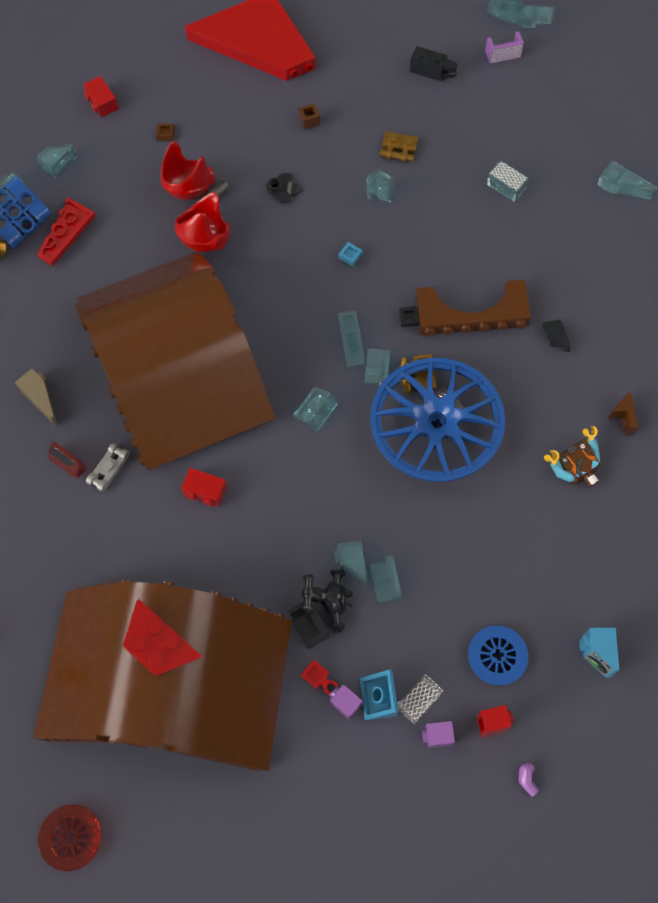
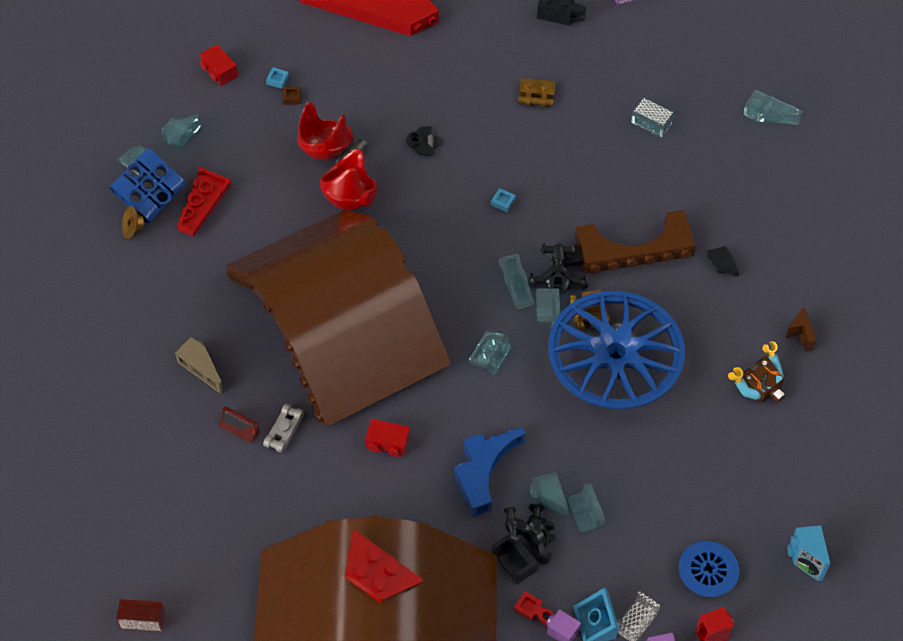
camera: 10 degrees left, 10 degrees down
(154, 113) = (277, 78): none -> dark azure plate
(294, 515) = (482, 458): none -> blue arch
(309, 116) = (440, 68): reddish brown plate -> none
(380, 185) = (525, 131): clear light blue bracket -> none
(392, 337) = (557, 276): none -> black piece

